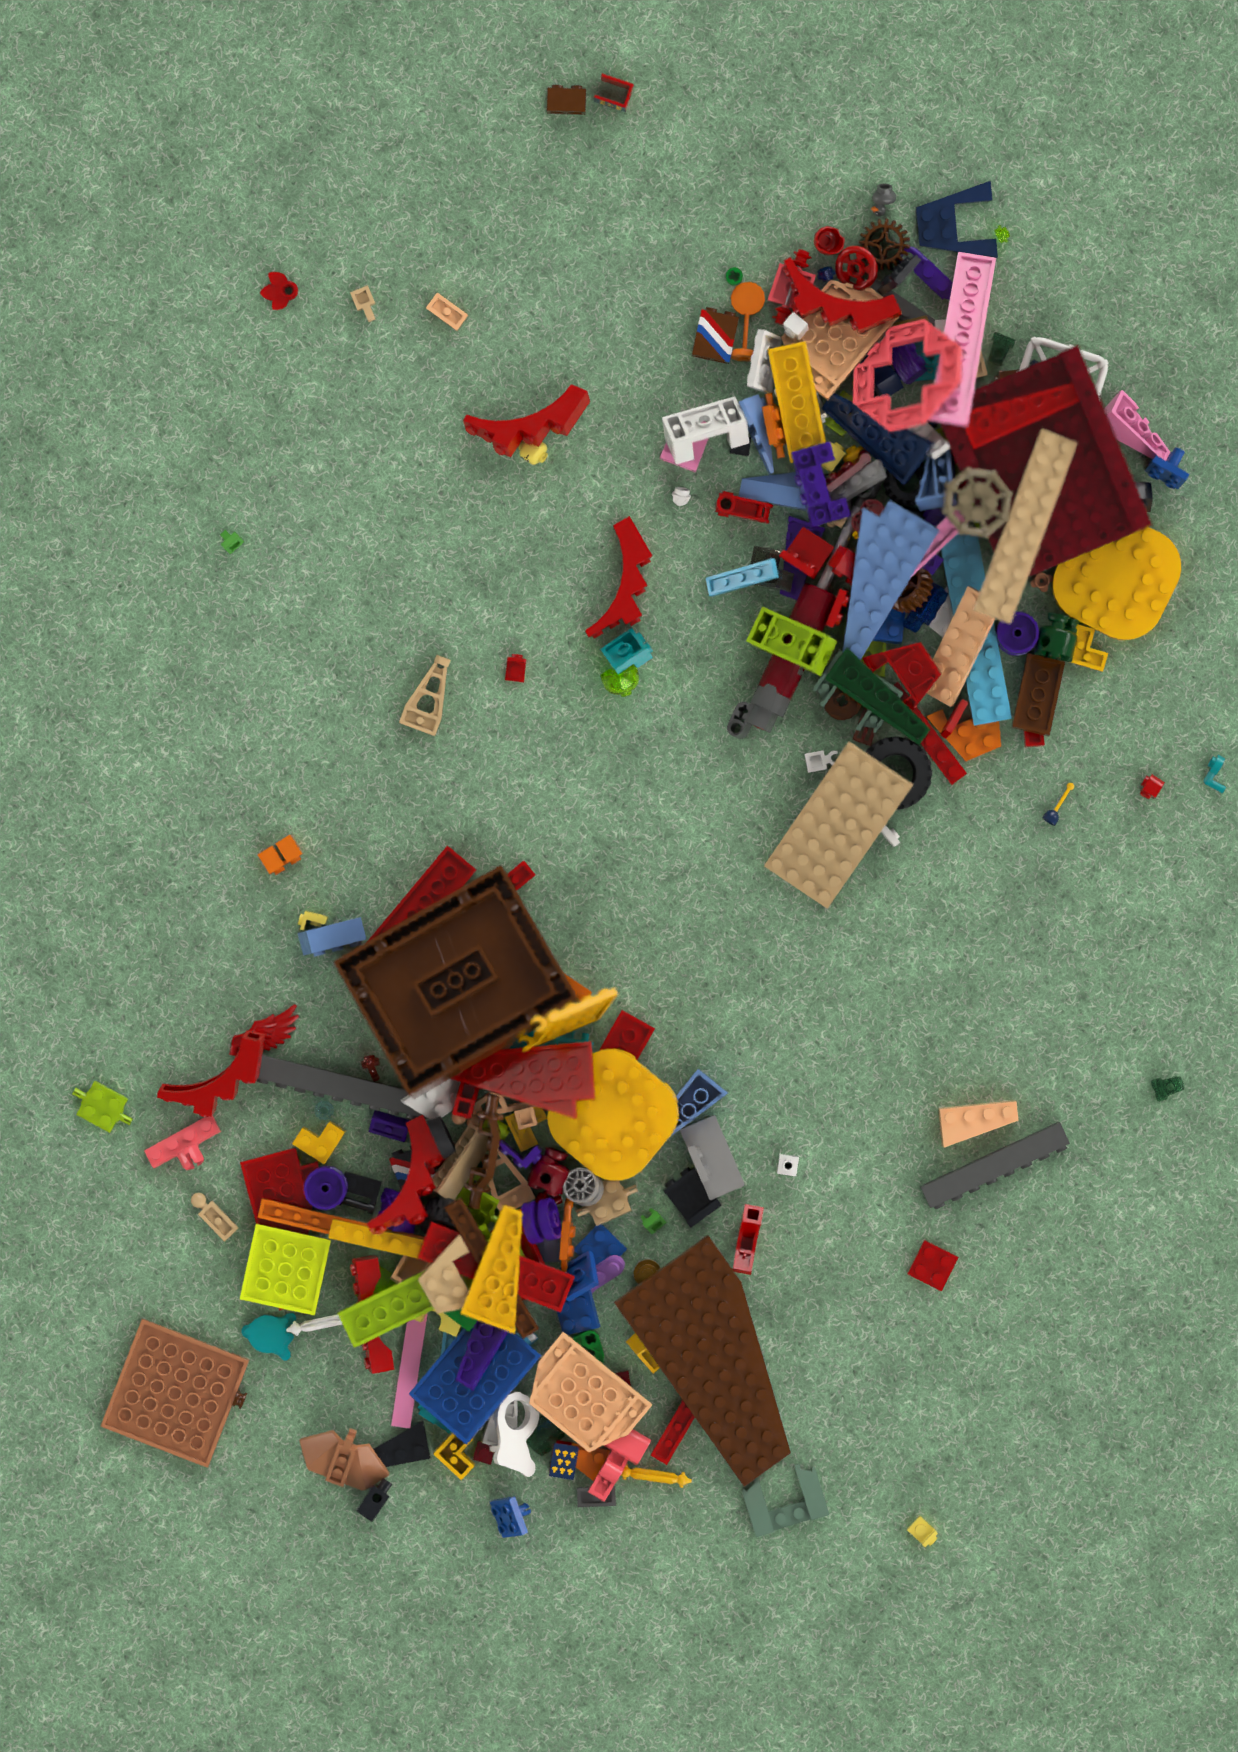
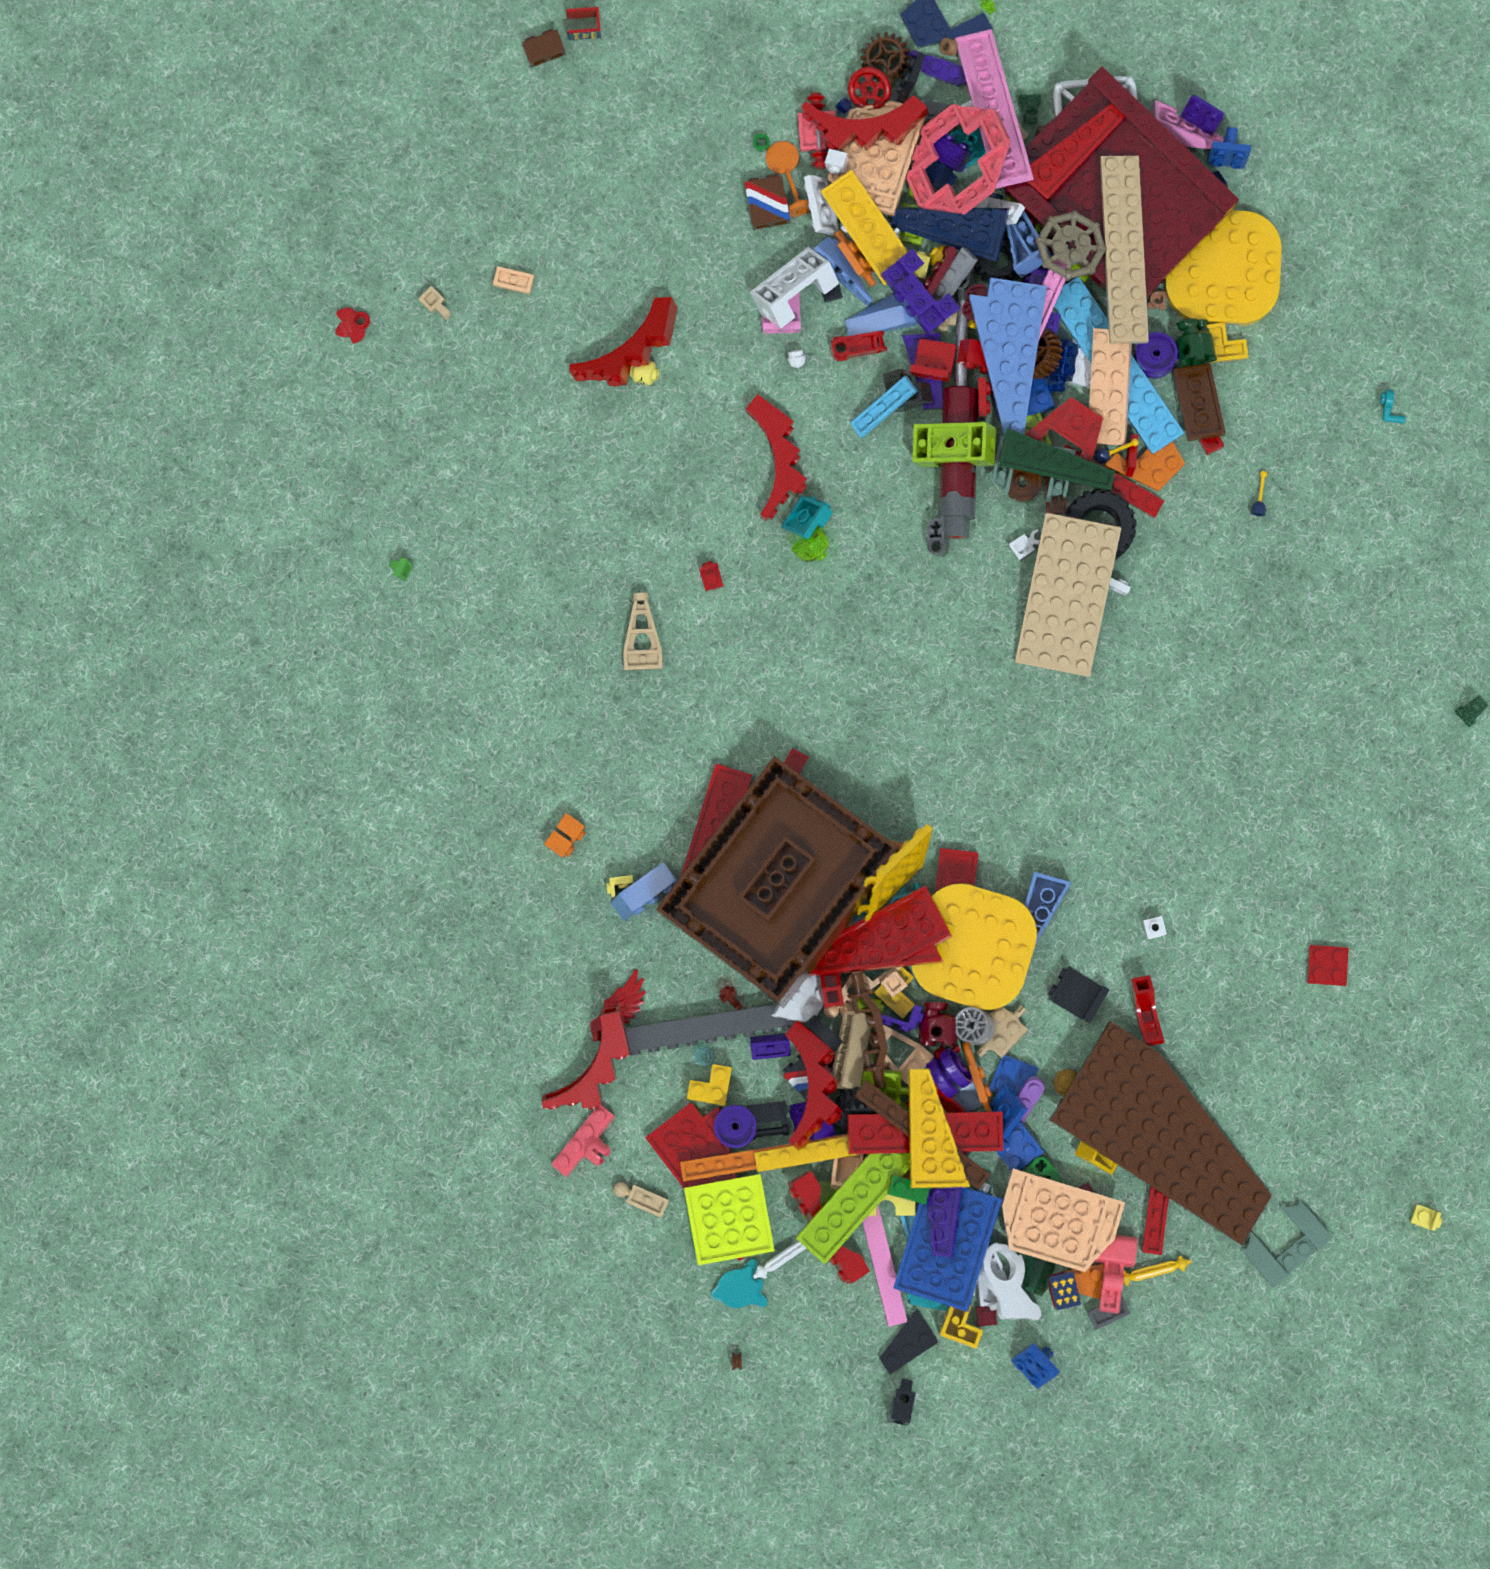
camera: 20 degrees left, 5 degrees down
(102, 1106) = (495, 1139): lime plate -> none
(175, 1393) = (673, 1380): nougat plate -> none
(342, 1460) = (857, 1377): nougat panel -> none
(442, 1280) = (881, 1165): tan wing -> none
(654, 1222) = (1053, 1032): bright green tile -> none
(712, 1157) = (1081, 950): light grey bracket -> none
(828, 241) = (833, 75): red hair -> none
(882, 196) = (866, 15): dark grey animal -> none
(929, 707) = (1104, 455): none -> hinge
(948, 258) = (948, 47): none -> medium nougat bush
(968, 1121) = (1302, 818): light nougat wedge -> none
(994, 1165) = (1344, 848): dark grey brick -> none
(1151, 786) = (1338, 443): red plate -> none
(1158, 424) = (1202, 115): none -> dark purple bracket

